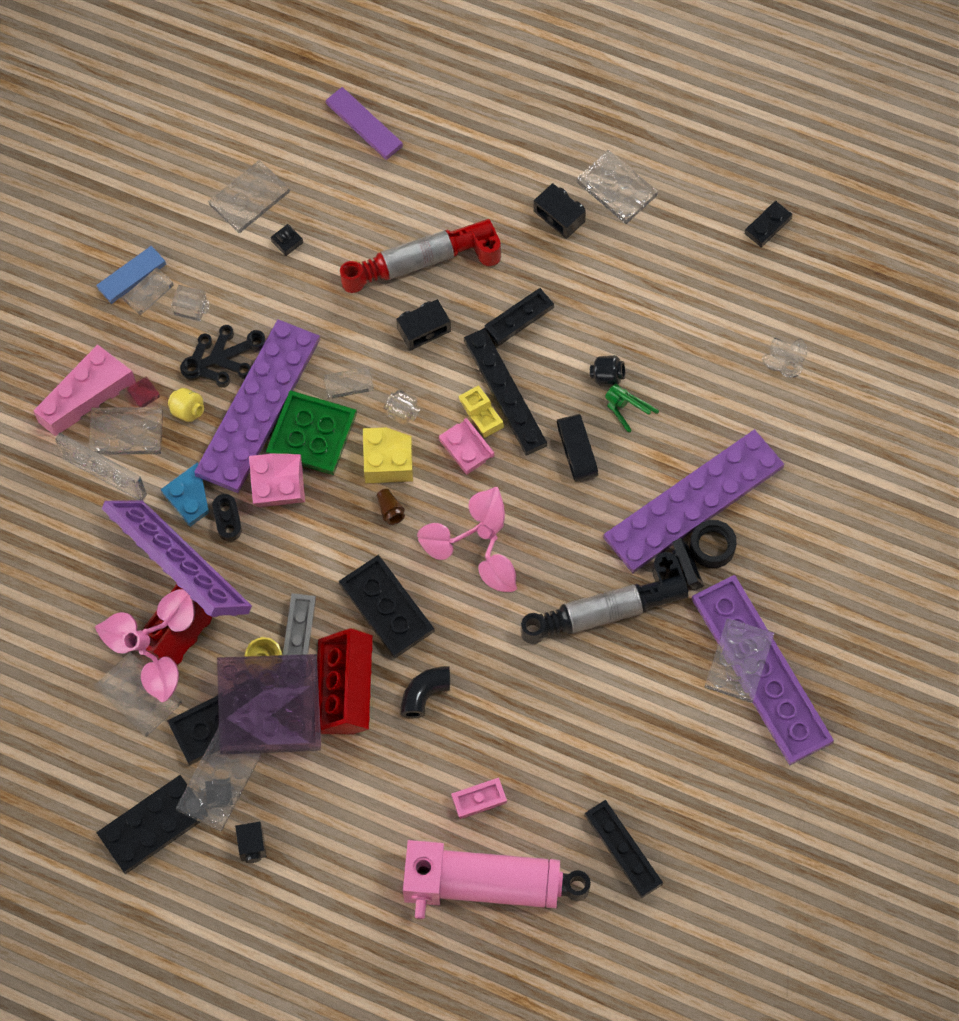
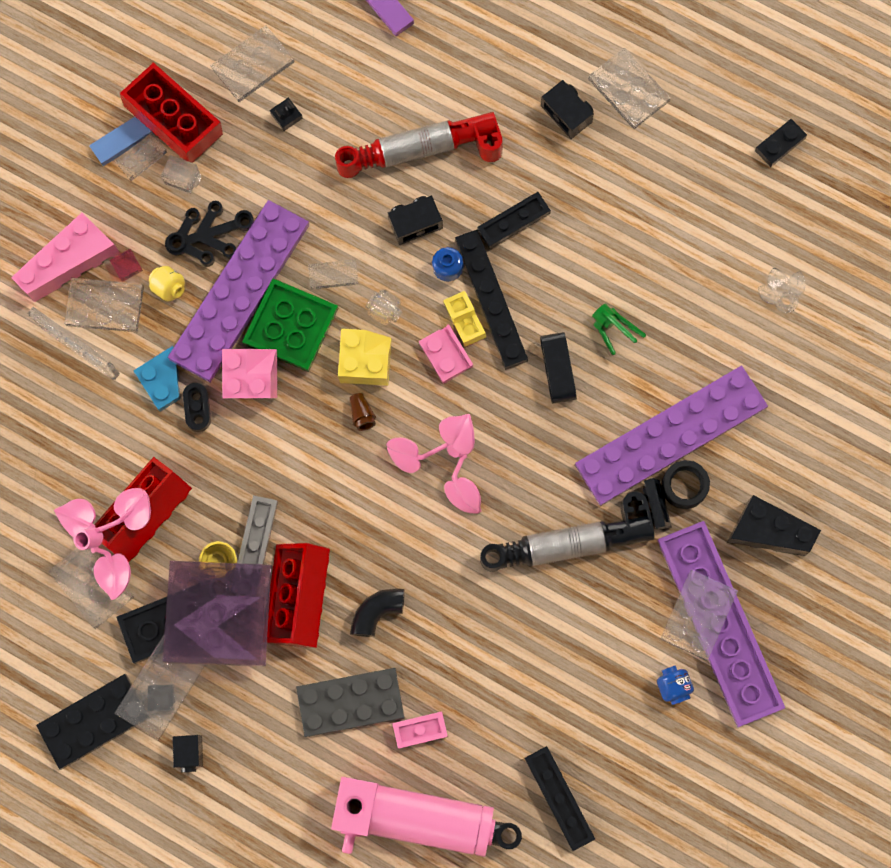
camera: 10 degrees right, 10 degrees up
(175, 246) = (171, 113): none -> red brick
(177, 558) = (138, 453): medium lavender plate -> none
(386, 606) = (347, 517): black plate -> none
(407, 780) = (350, 702): none -> dark grey plate
(459, 361) = (447, 264): none -> blue head
(608, 370) = (598, 288): black head -> none
(724, 730) = (675, 685): none -> blue head
(802, 576) = (773, 529): none -> black wedge

